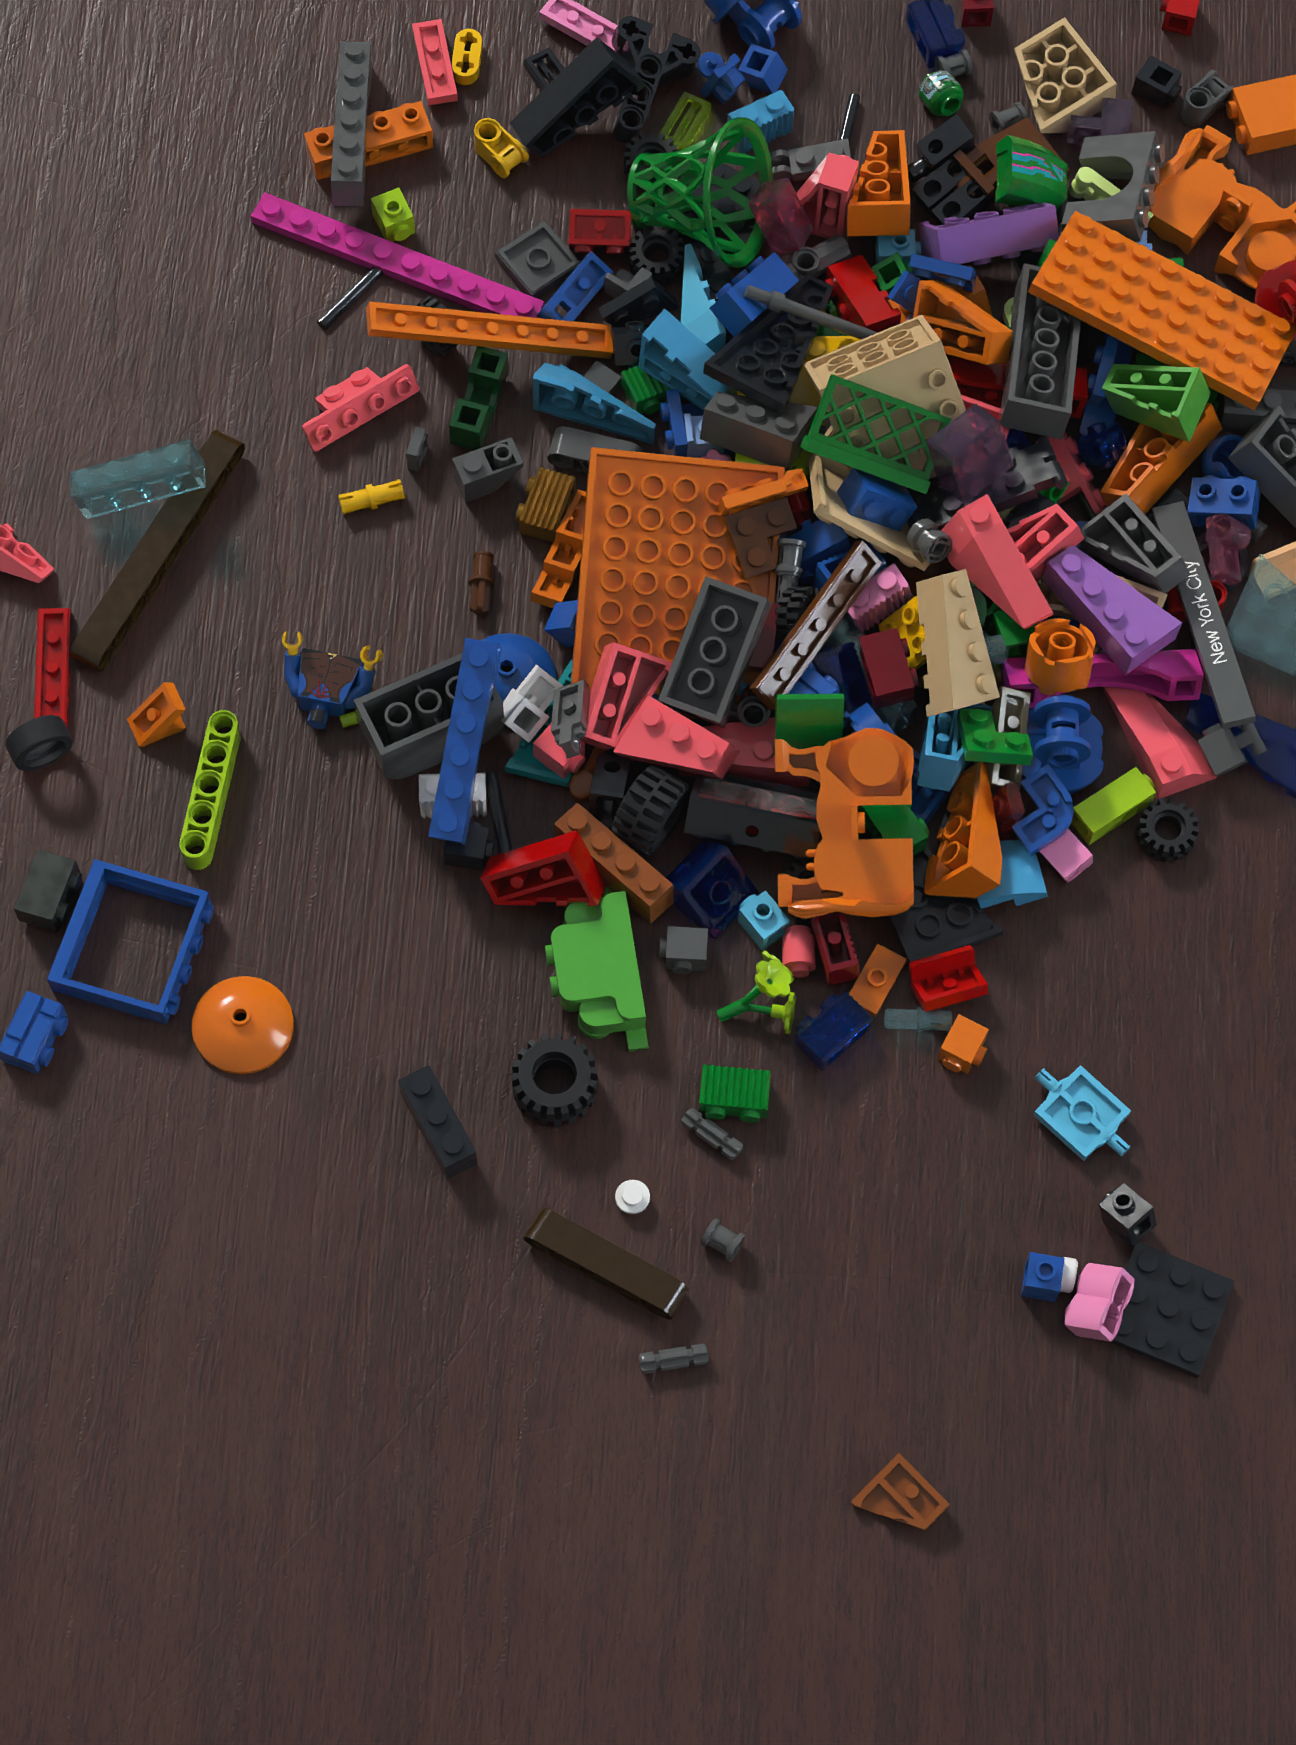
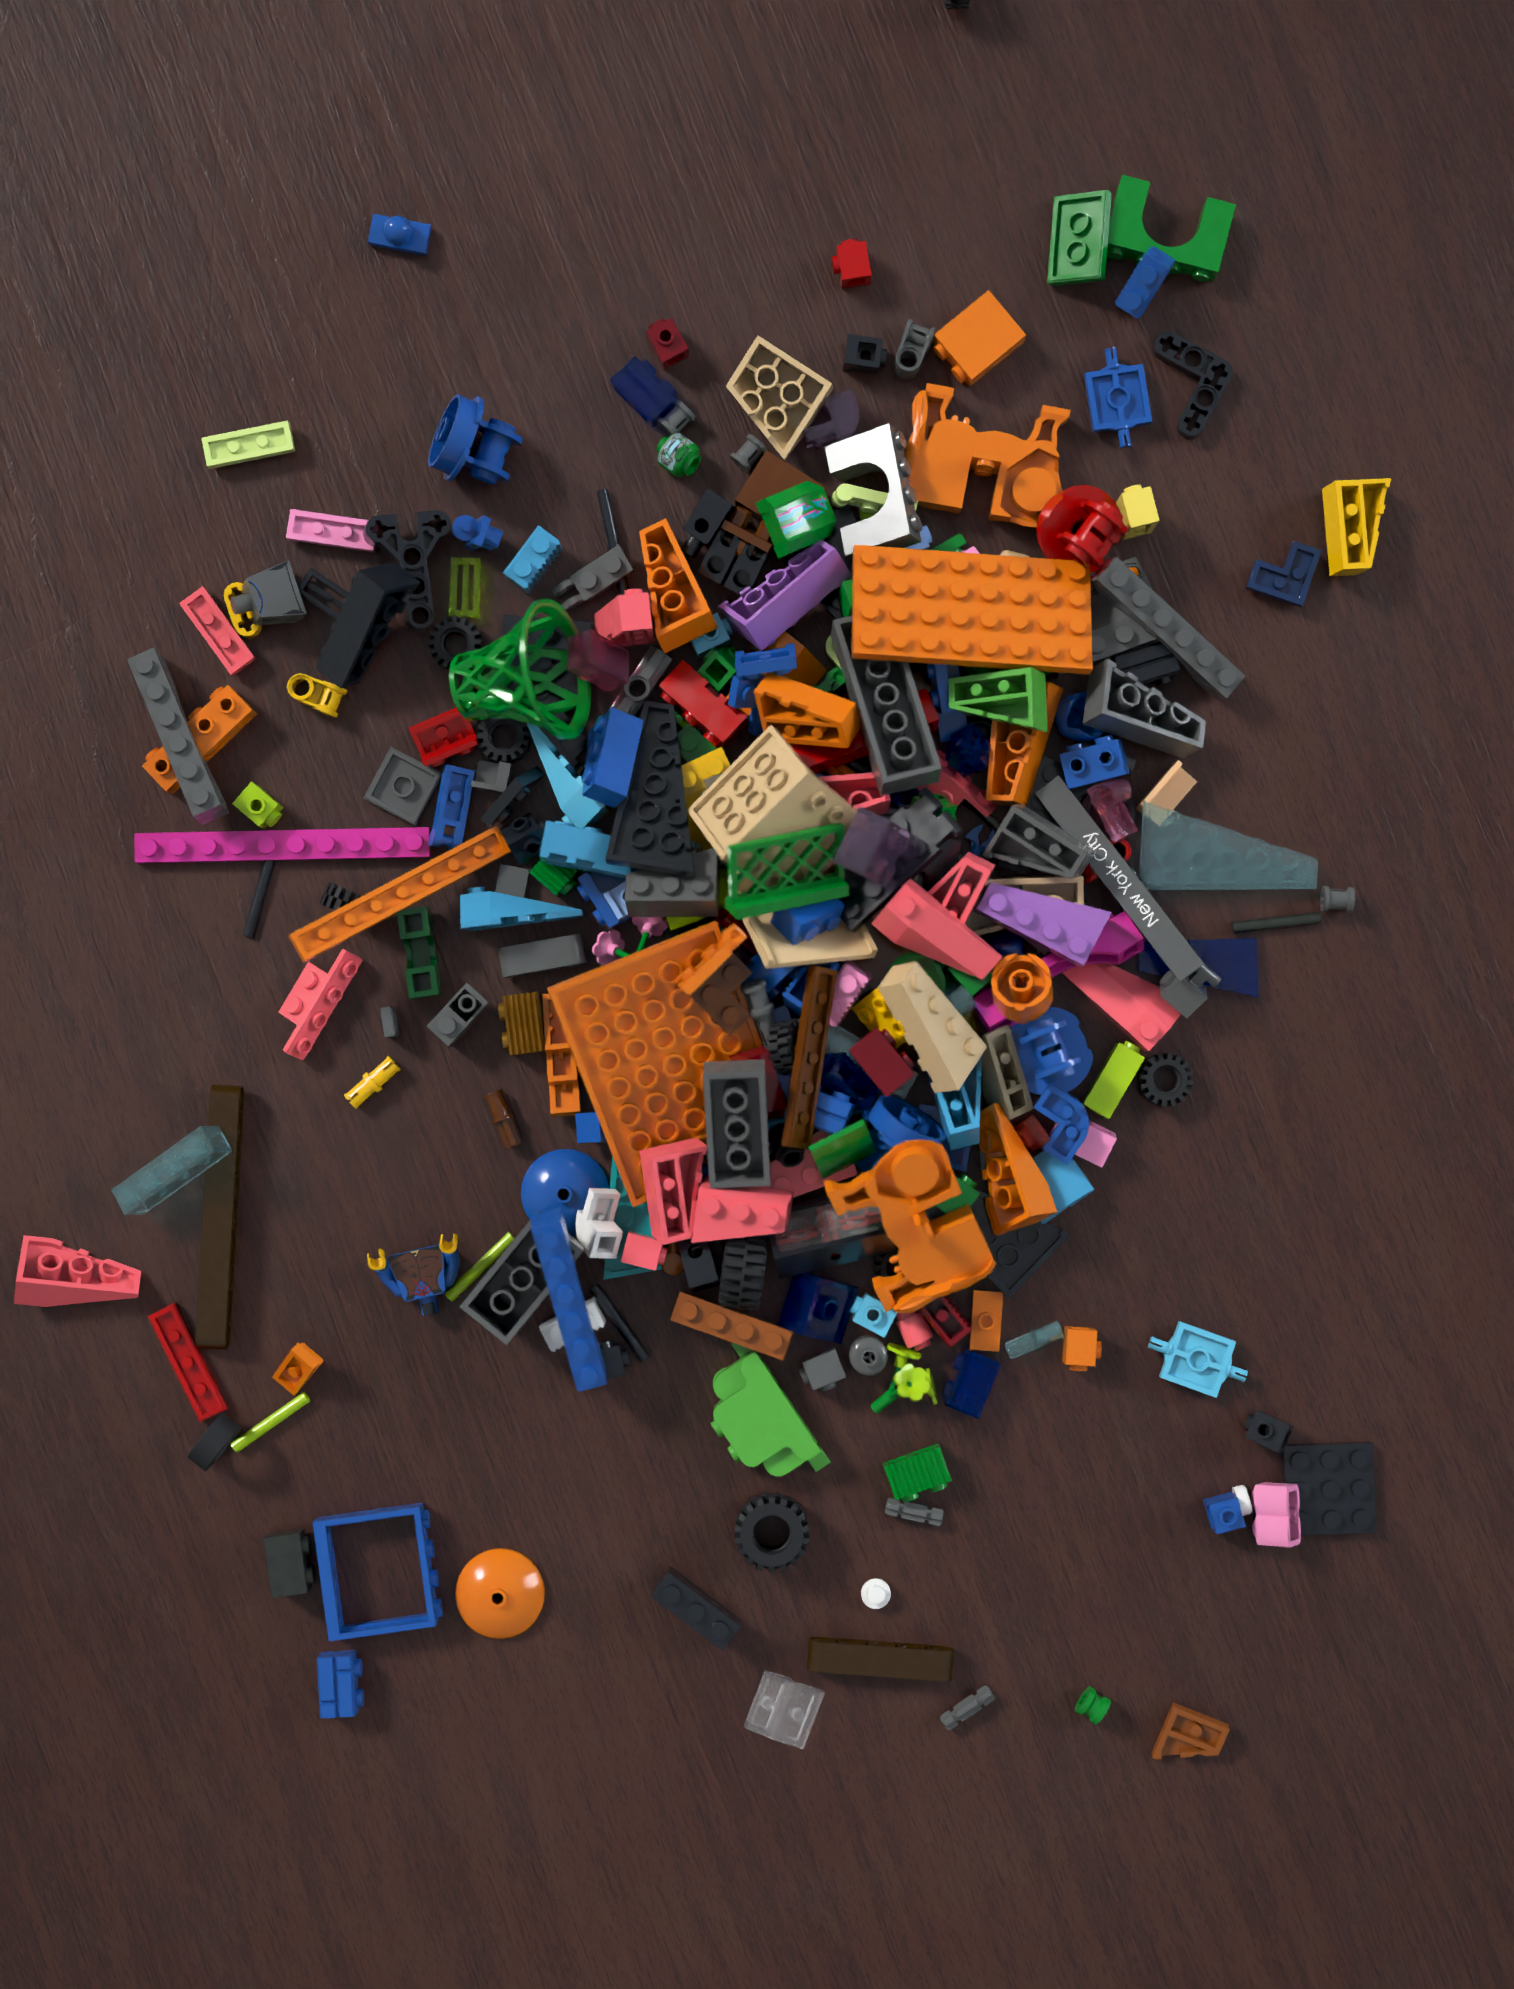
camera: 20 degrees left, 20 degrees up
(102, 759) = (270, 1422): none -> lime bar
(210, 803) = (371, 1426): lime beam -> none
(477, 1270) = (784, 1709): none -> clear slope
(500, 50) = (271, 597): none -> dark grey torso
(545, 872) = (681, 1366): red wedge -> none
(570, 716) = (642, 1229): dark grey hinge -> none
(723, 1239) = (962, 1596): dark grey bush -> none
(738, 953) = (872, 1345): none -> dark grey head
(763, 69) = (512, 508): blue brick -> none
(776, 302) = (639, 765): dark grey bar -> none
(810, 1414) = (1092, 1705): none -> green wheel
(929, 540) = (868, 934): dark grey wheel -> none
(946, 978) = (1044, 1298): red bracket -> none
(984, 744) = (996, 1097): green plate -> none

